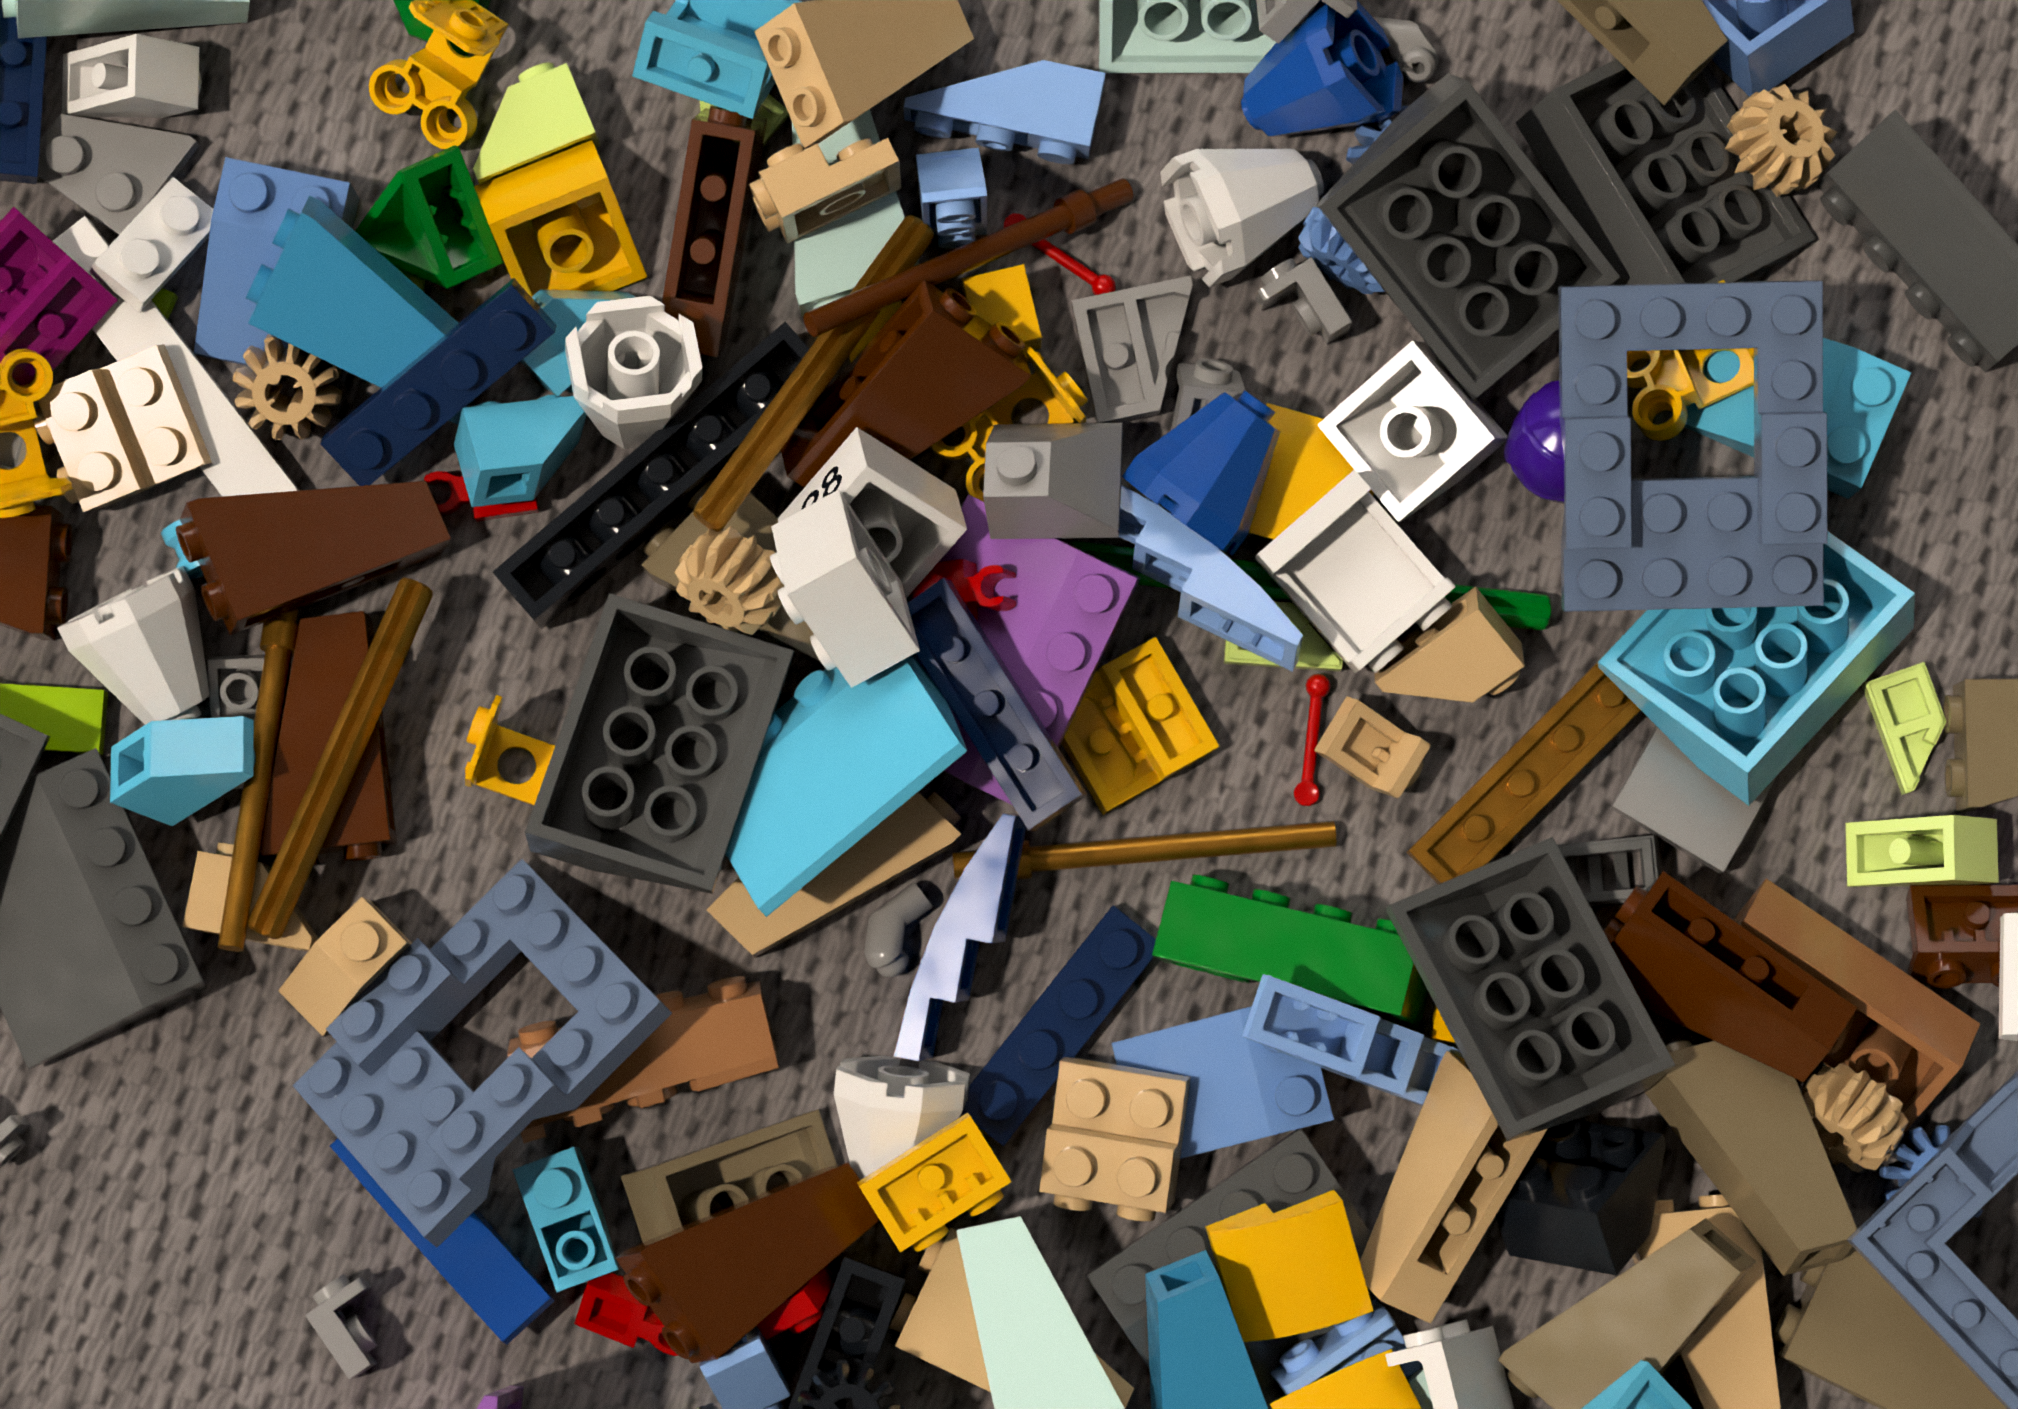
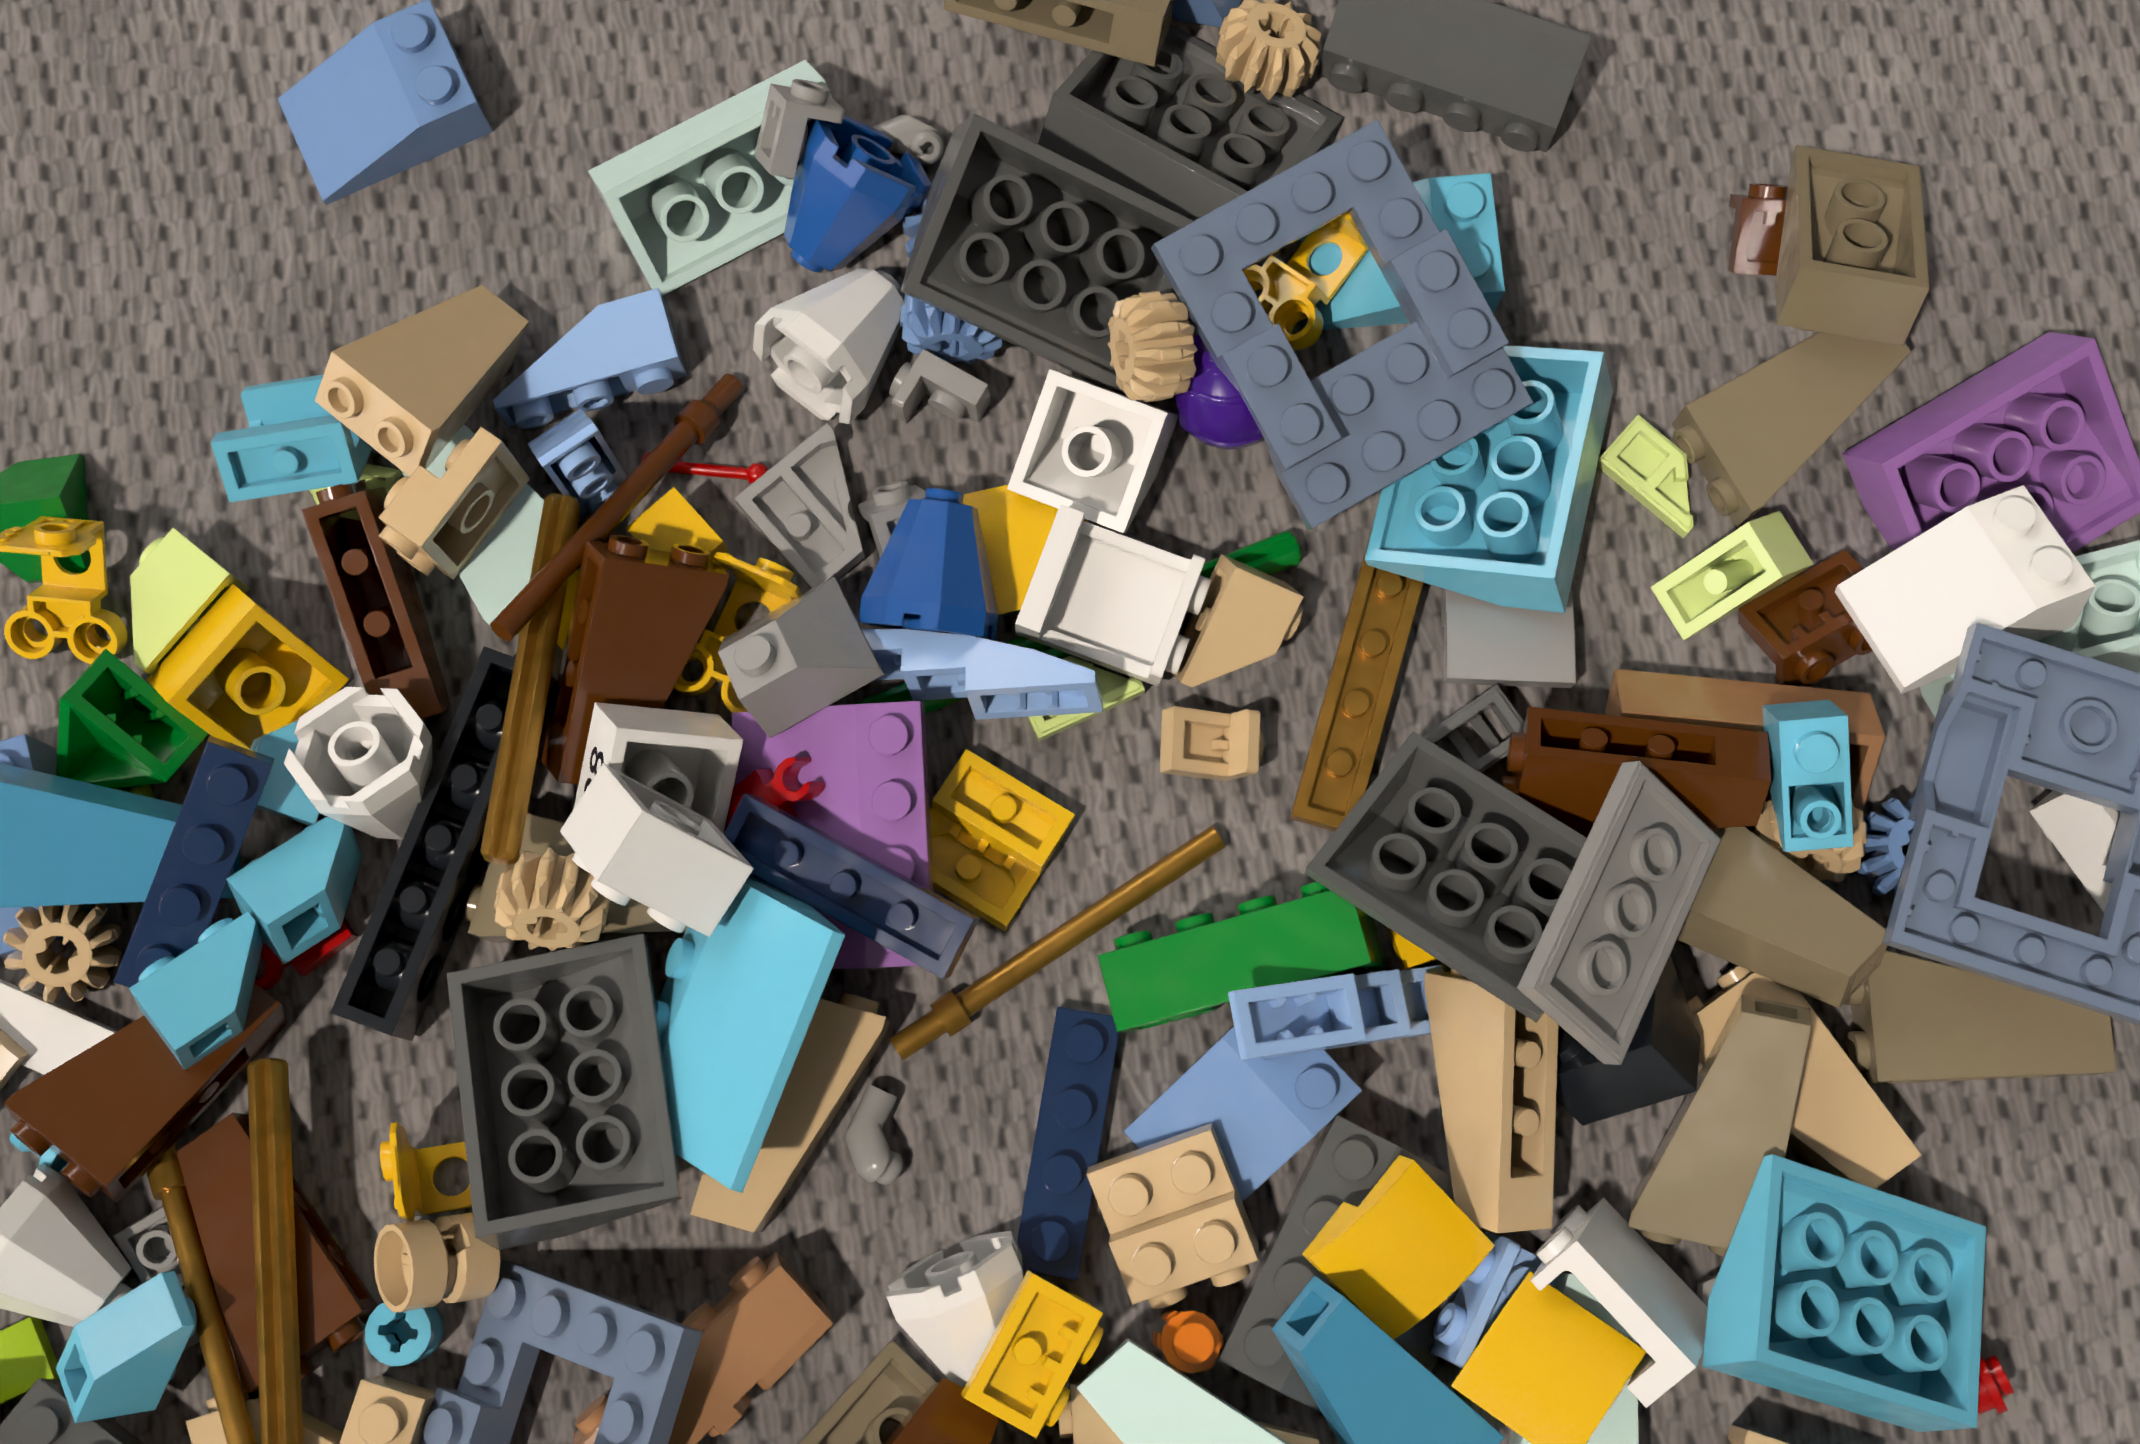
camera: 25 degrees left, 5 degrees down
(391, 499) = (203, 993): none -> medium azure slope
(427, 873) = (418, 1331): none -> medium azure wheel
(471, 832) = (433, 1262): none -> tan wheel
(973, 914) = (935, 1083): slope -> none
(1070, 1247) = (1188, 1340): none -> orange arm
(1306, 791) = (1173, 813): red hinge -> none
(1512, 373) = (1152, 346): none -> tan gear
(1635, 1090) = (1620, 913): none -> light grey tile
(1870, 1063) = (1810, 774): none -> medium azure slope

